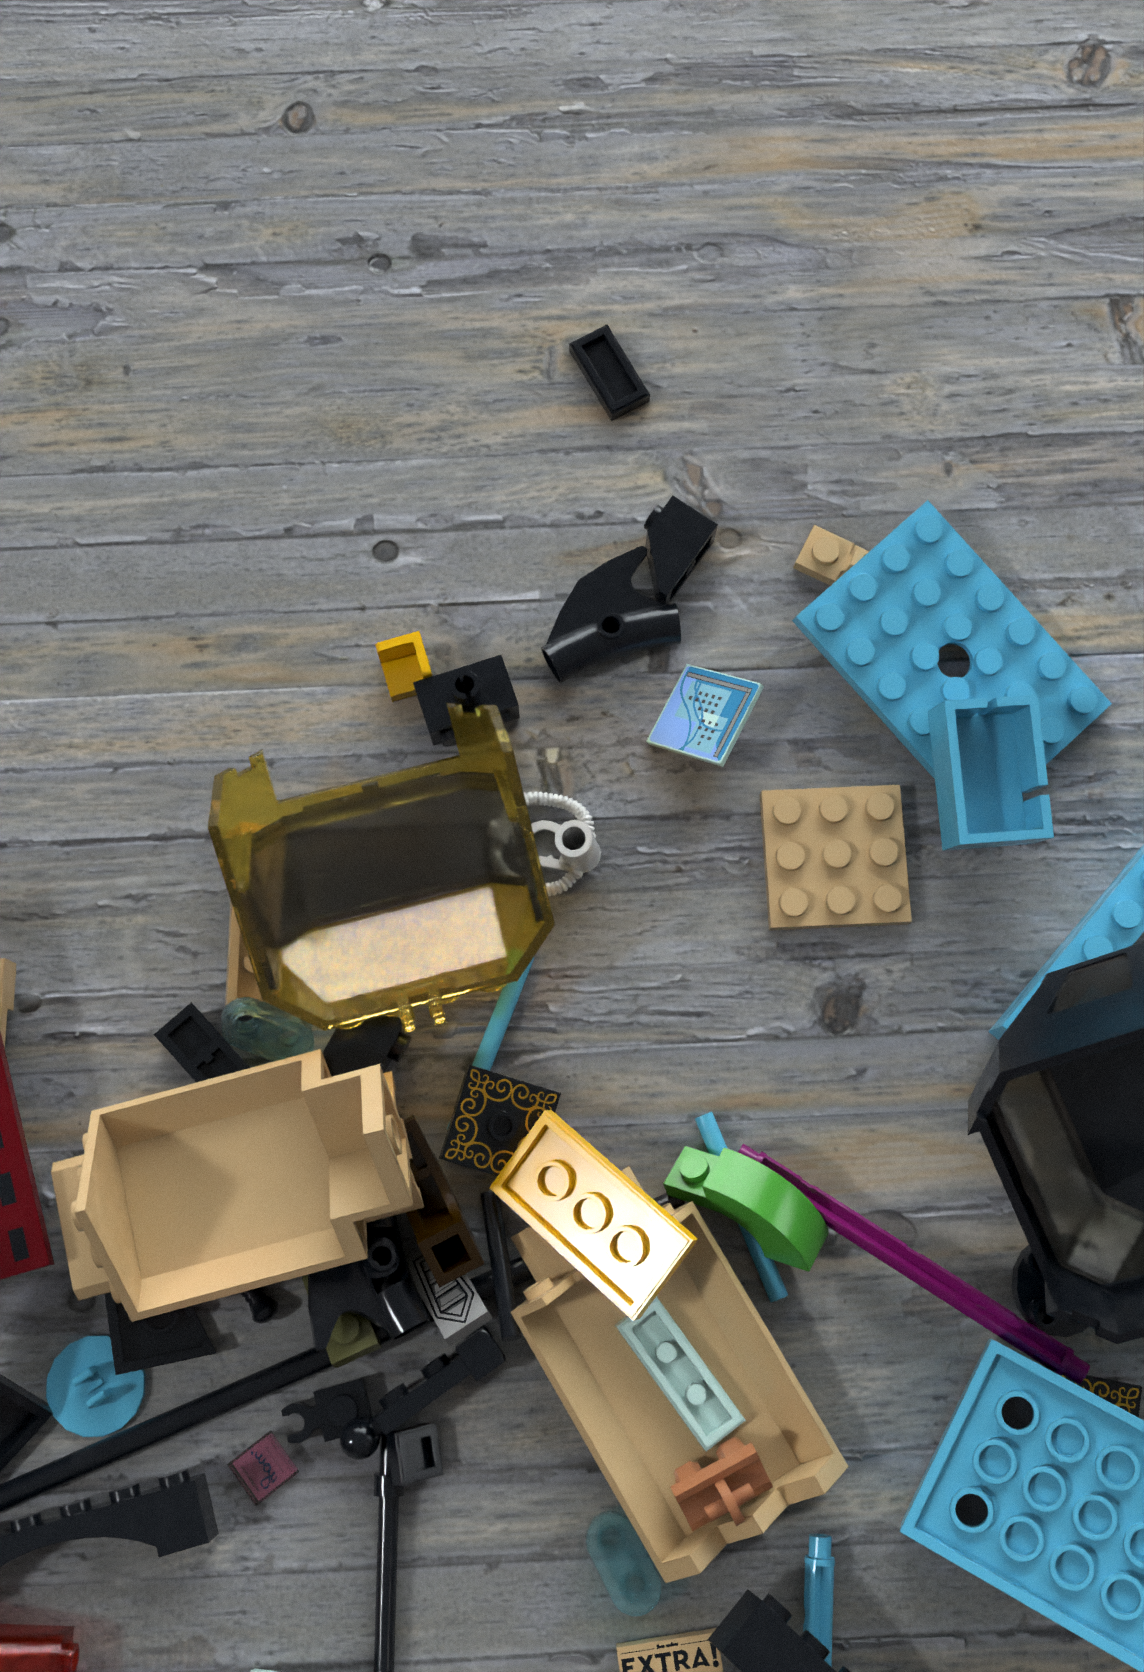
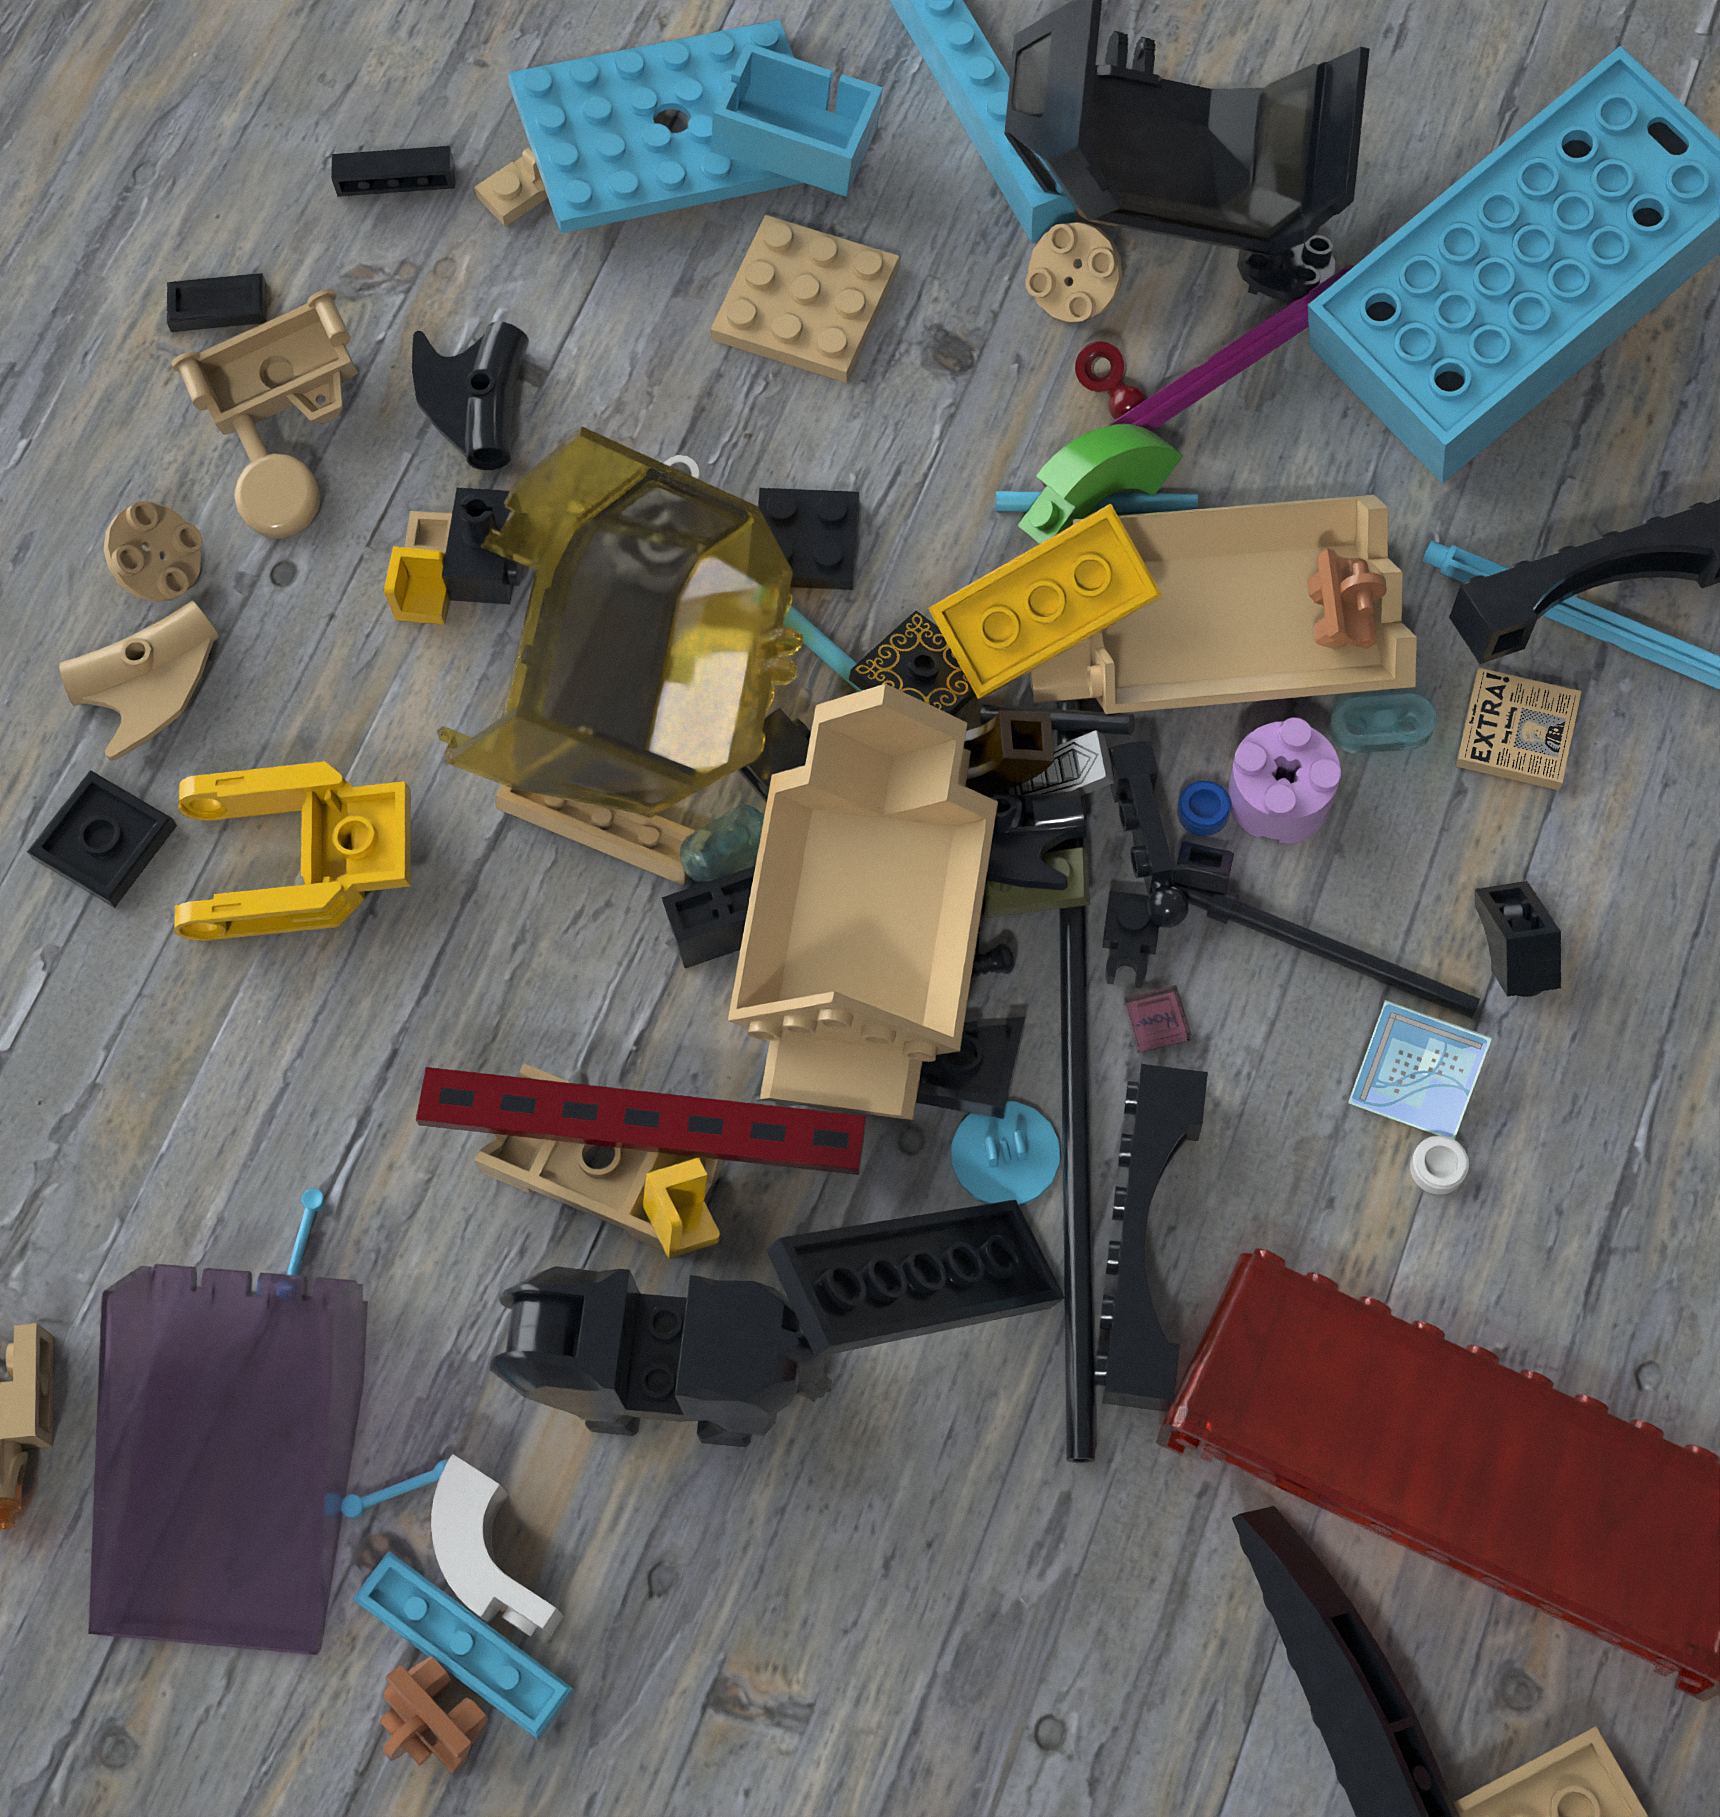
camera: 60 degrees left, 10 degrees down
(92, 531) = (102, 838): none -> black tile
(149, 725) = (349, 846): none -> yellow plate
(238, 492) = (144, 676): none -> tan pin
(323, 446) = (161, 533): none -> tan plate
(462, 648) = (428, 530): none -> tan tile
(478, 1428) = (1204, 808): none -> blue tile
(526, 1527) = (1284, 781): none -> lavender brick
(536, 439) = (260, 375): none -> tan piece
(596, 965) = (814, 533): none -> black plate
(675, 545) = (428, 302): black slope -> none
(681, 1375) = (1229, 604): light aqua tile -> none
(705, 714) = (611, 344): piece -> none
(799, 450) = (393, 171): none -> black piece
(856, 1188) = (1122, 396): none -> dark red plate
(945, 1067) = (1056, 260): none -> tan plate

